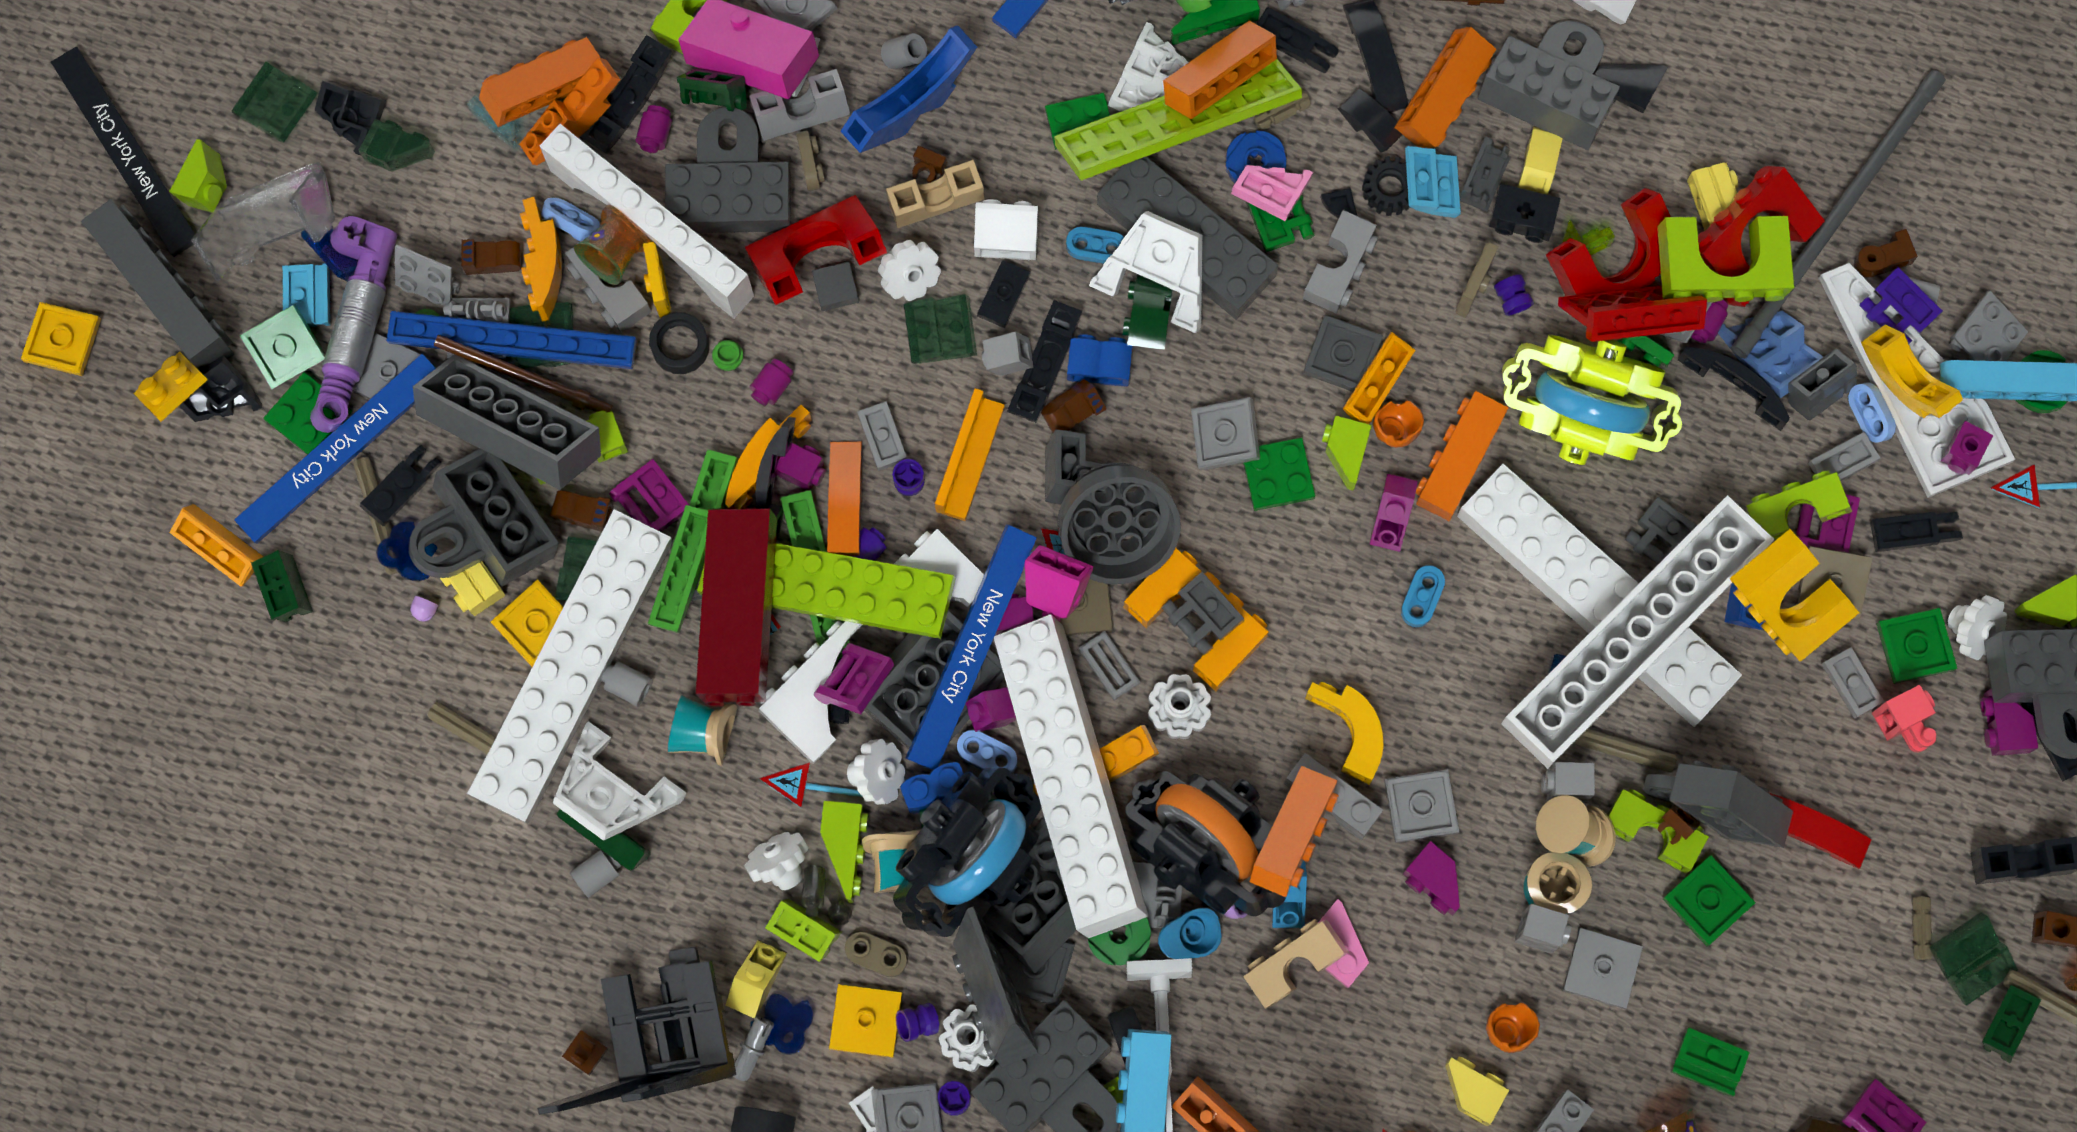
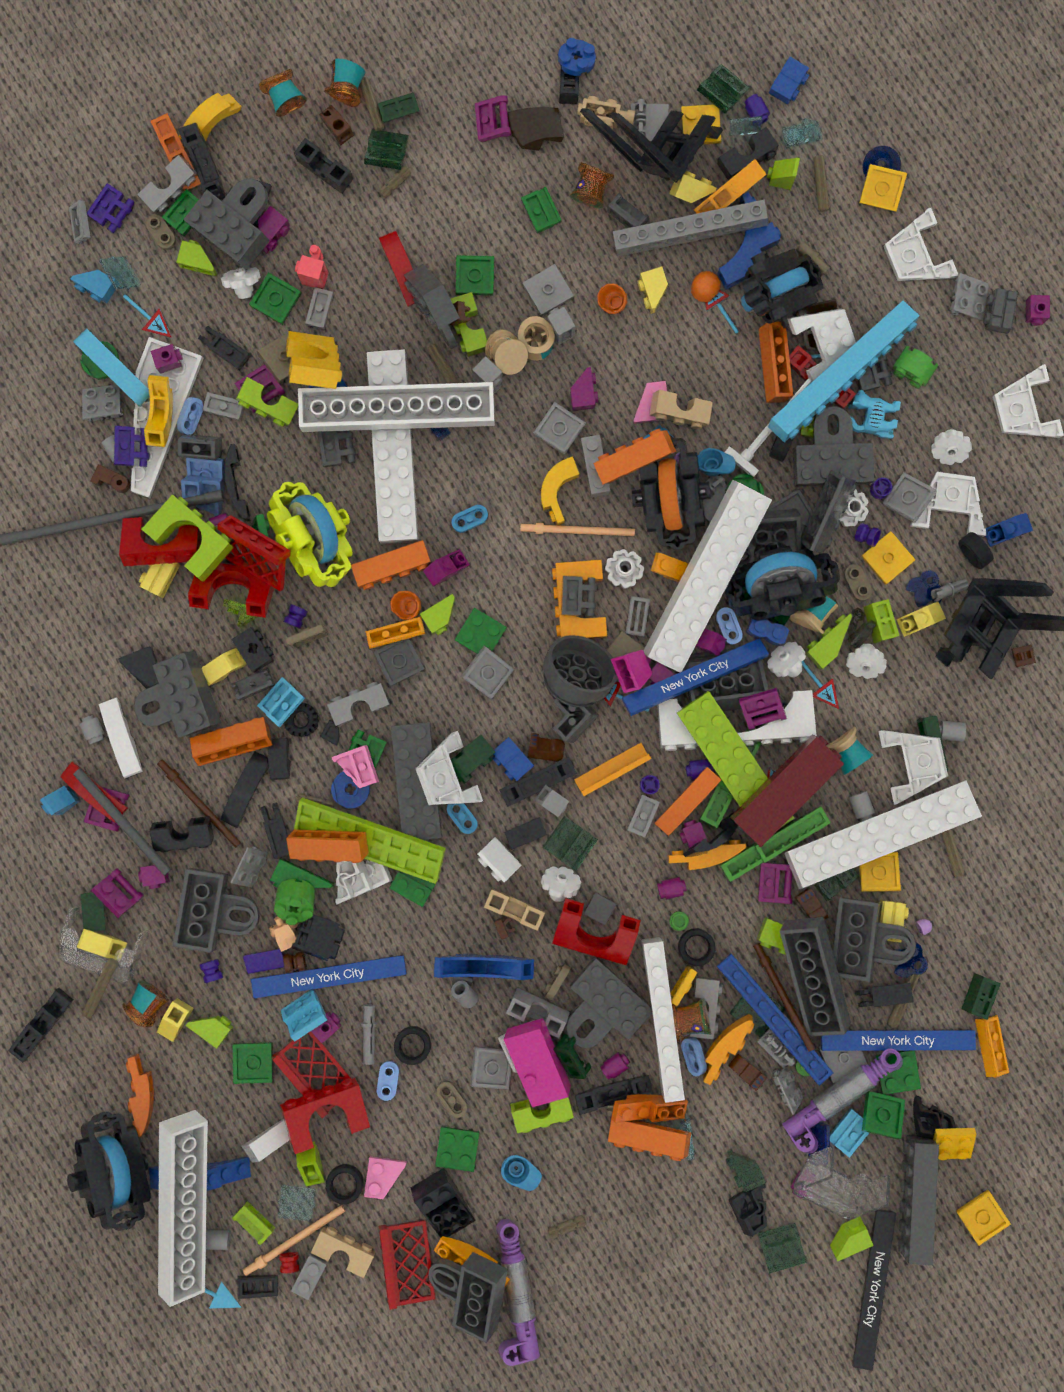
camera: 135 degrees left, 10 degrees up
(1326, 664) = (539, 528): none -> light nougat bar

